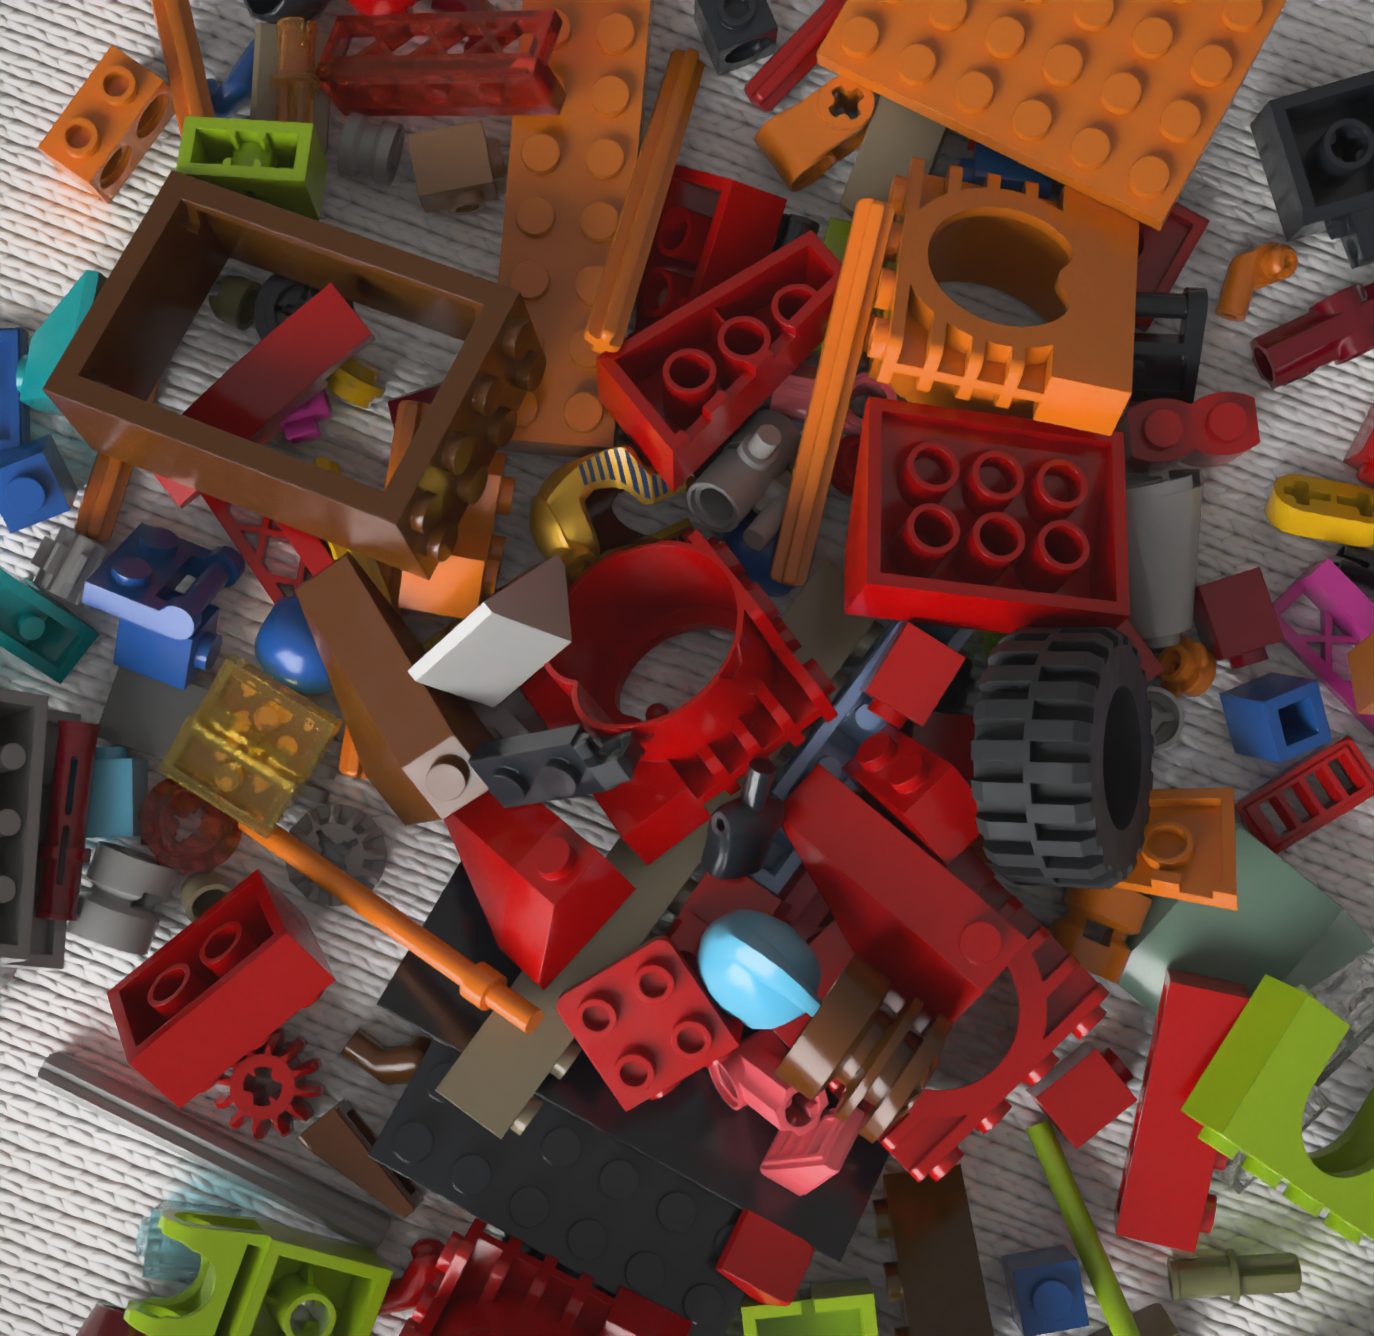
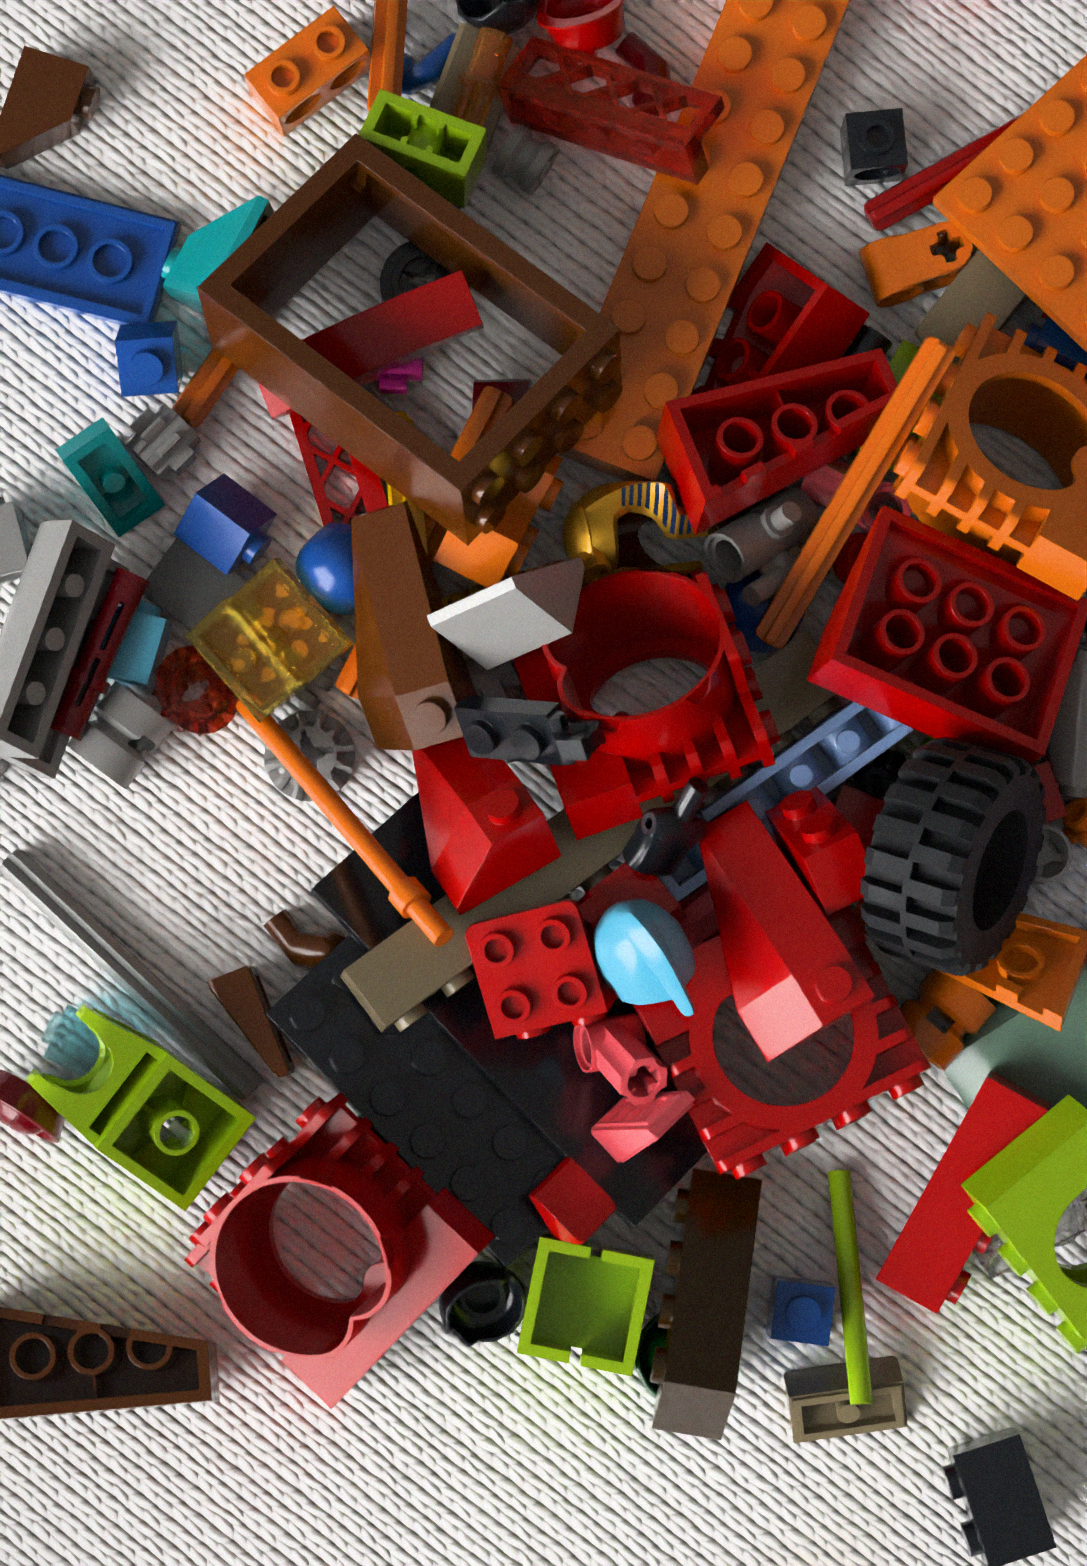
camera: 20 degrees right, 0 degrees up
(149, 568) = (227, 463): blue plate -> none
(202, 891) = (190, 758): dark tan hinge -> none
(218, 989) = (182, 835): red brick -> none
(235, 301) = (369, 255): olive hinge -> none
(281, 1105) = (177, 938): red gear -> none
(356, 382) = (453, 359): yellow plate -> none
(407, 1290) = (260, 1141): red arm -> none
(456, 168) = (594, 199): medium nougat brick -> none
(644, 202) = (748, 278): orange axle -> none
(865, 1049) = (710, 1041): reddish brown wheel -> none
(910, 676) = (846, 751): red brick -> none
(1084, 1093) = (886, 1155): red brick -> none
(1233, 1275) = (966, 1350): olive axle -> none

